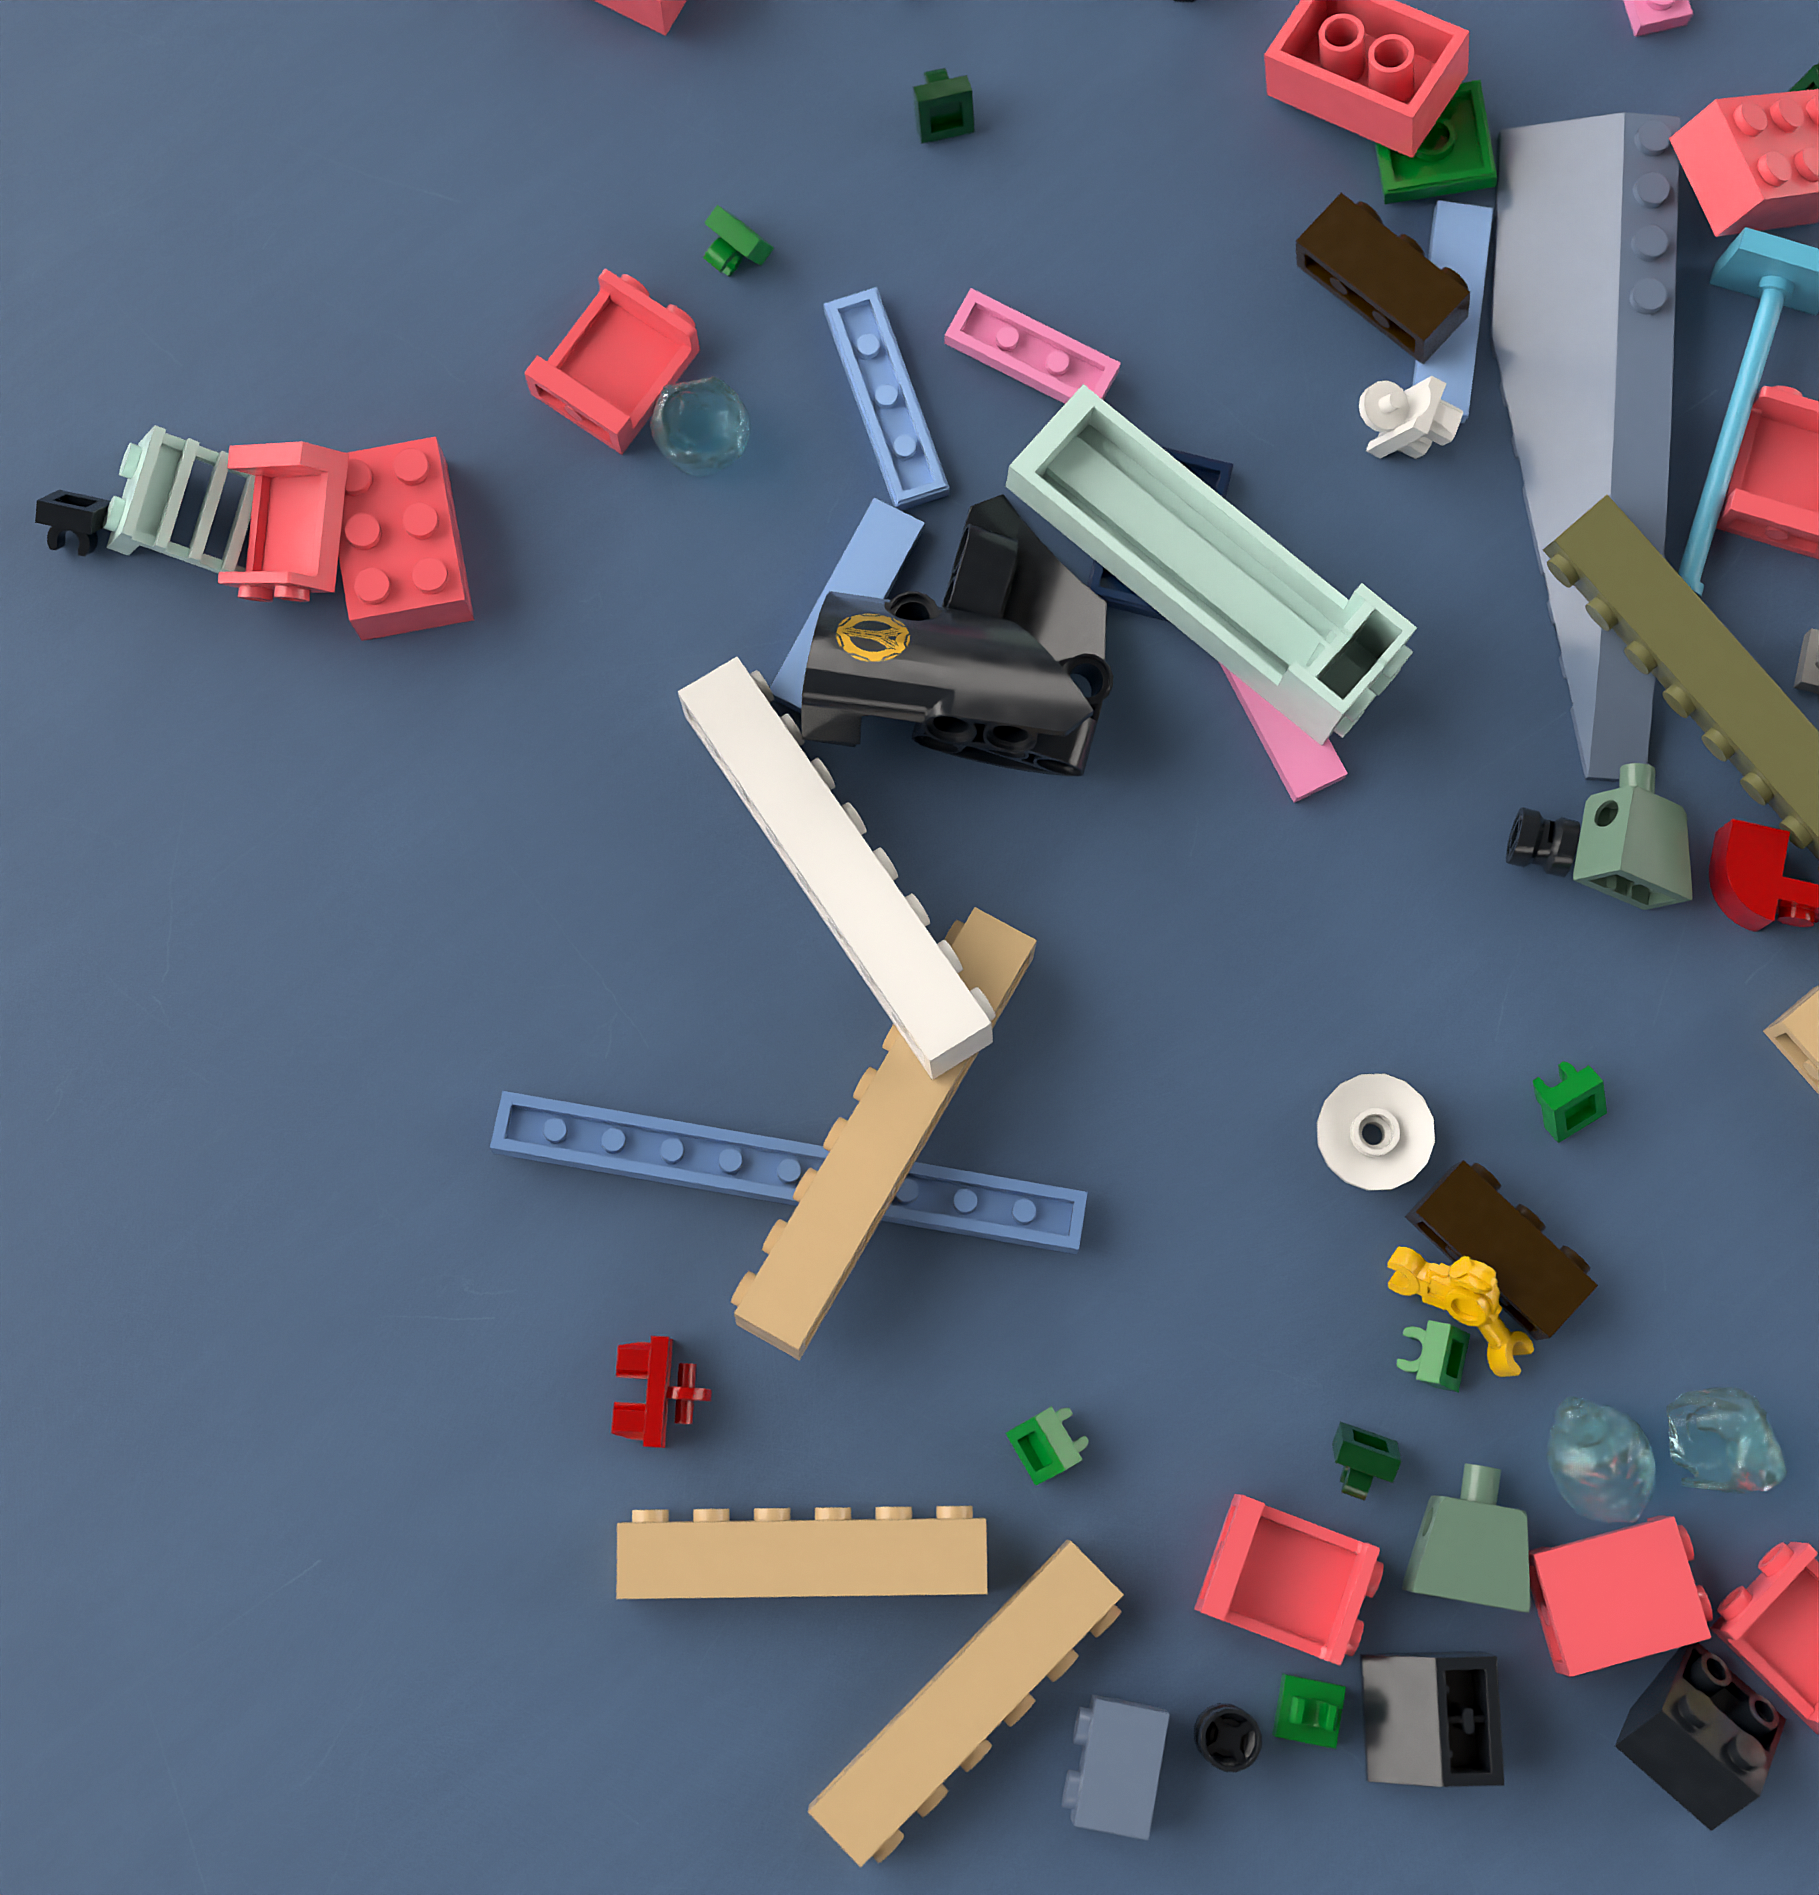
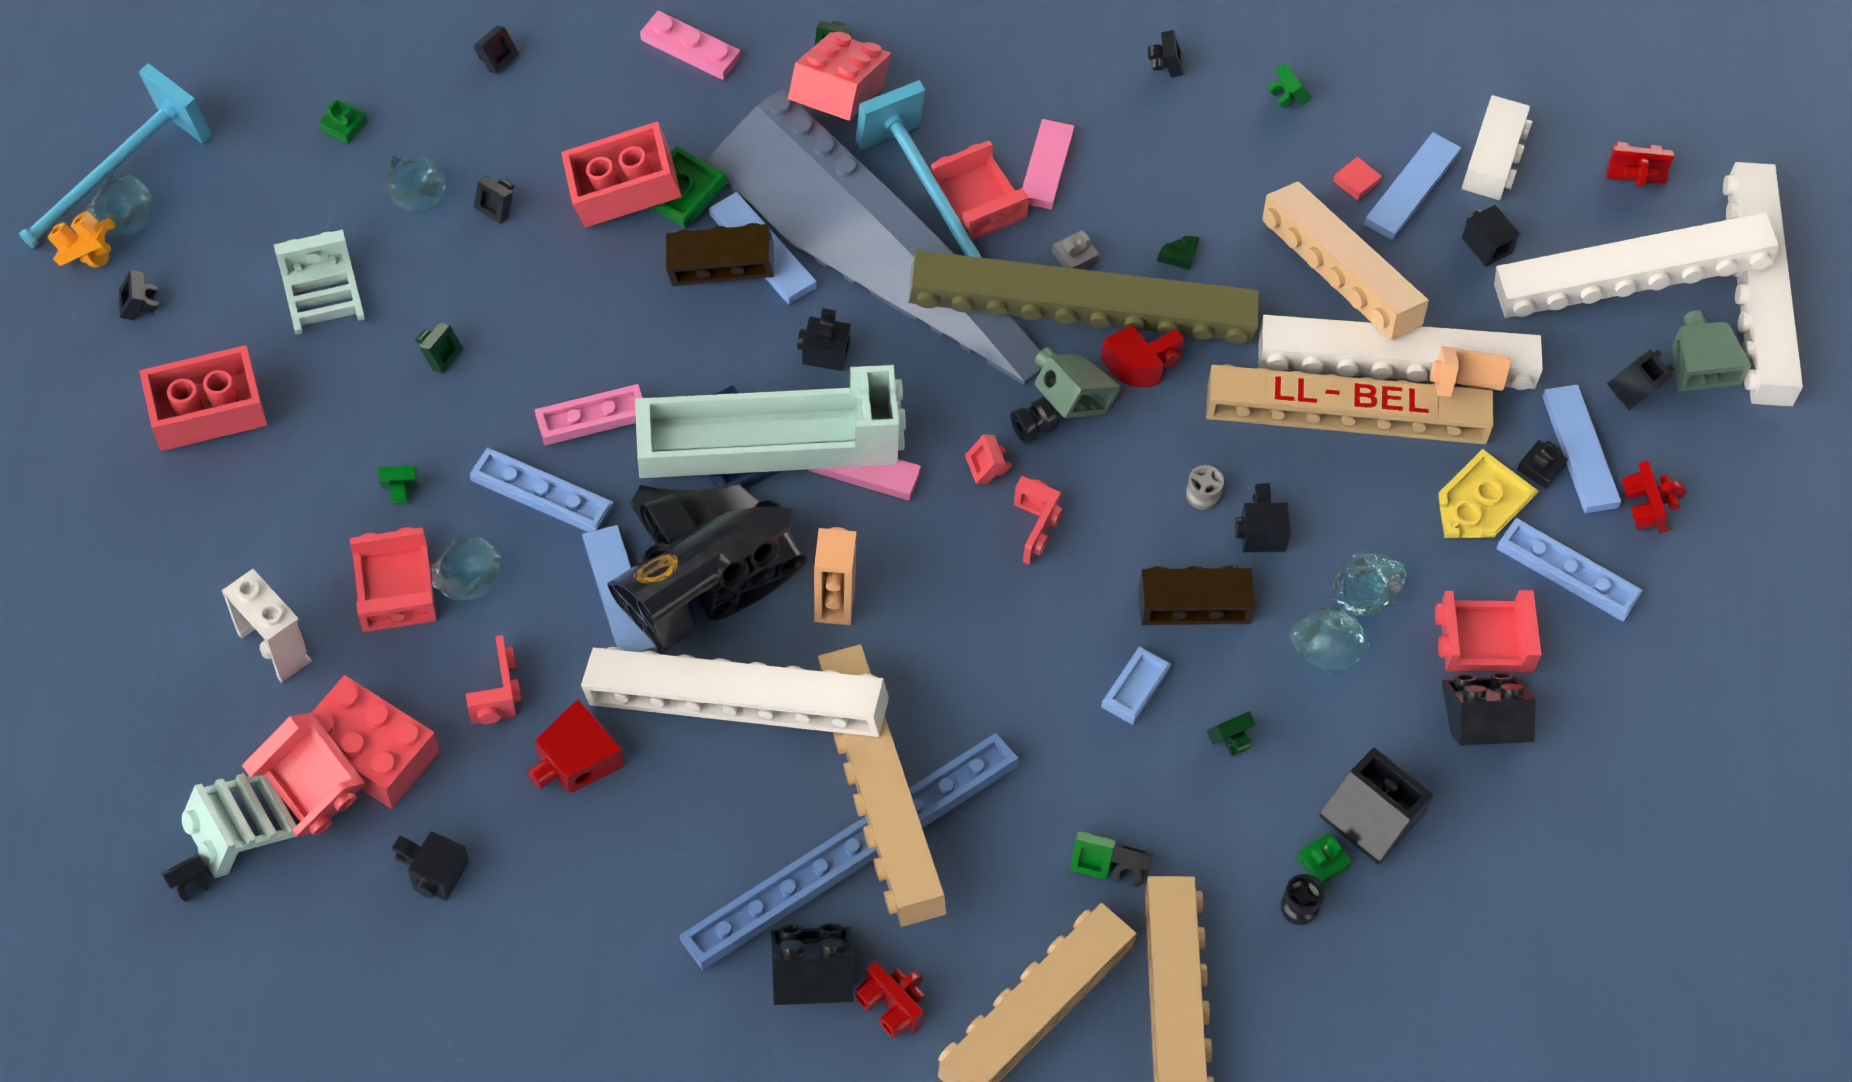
camera: 45 degrees left, 20 degrees down
(332, 754) = (434, 865): none -> black brick
(399, 315) = (258, 607): none -> white window
(569, 620) = (497, 703): none -> coral bracket
(605, 760) = (575, 751): none -> red torso
(607, 1265) = (812, 965): none -> black slope
(1085, 828) = (834, 576): none -> light nougat brick
(1085, 1495) = (1132, 859): none -> black tile
(1117, 1766) = (1270, 956): sand blue brick -> none
(1290, 1580) = (1256, 813): coral panel -> none
(1316, 1287) = (1136, 685): none -> light blue tile
(1394, 508) = (825, 341): none -> black brick
(1399, 1115) = (1096, 584): white dish -> none
(1409, 417) = (793, 298): white hips -> none
(1432, 839) = (987, 459): none -> coral tile
(1441, 1355) = (1219, 661): tile -> none
(1443, 948) = (1043, 501): none -> coral bracket
(1469, 1295) = (1200, 622): yellow piece -> none
(1472, 1547) = (1317, 725): sand green torso -> none
(1572, 1102) = (1160, 511): green tile -> none
(1618, 1596) = (1393, 688): coral panel -> none
(1672, 1116) = (1199, 480): none -> light grey wheel
(1682, 1238) = (1263, 524): none -> black brick

